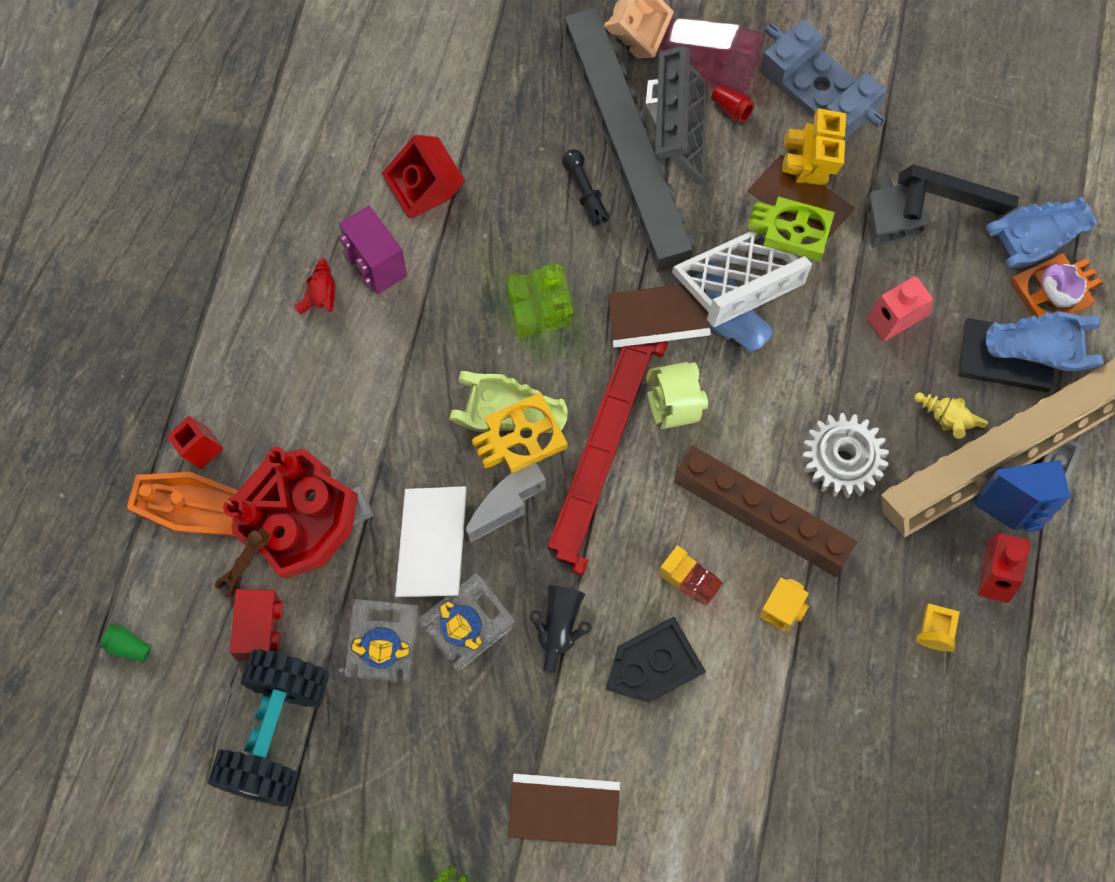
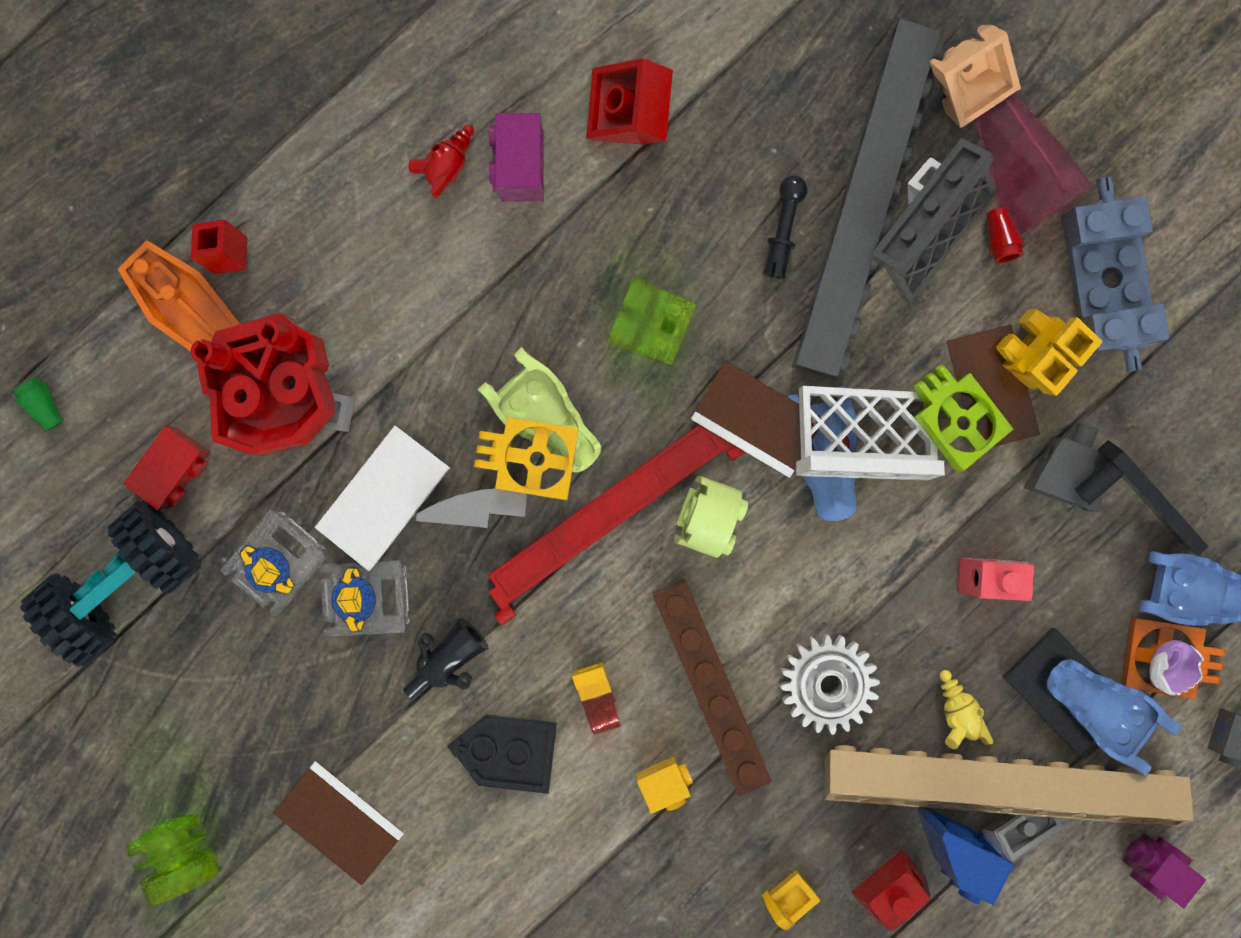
camera: 35 degrees right, 20 degrees up
(256, 541) = (177, 407): reddish brown piece -> none

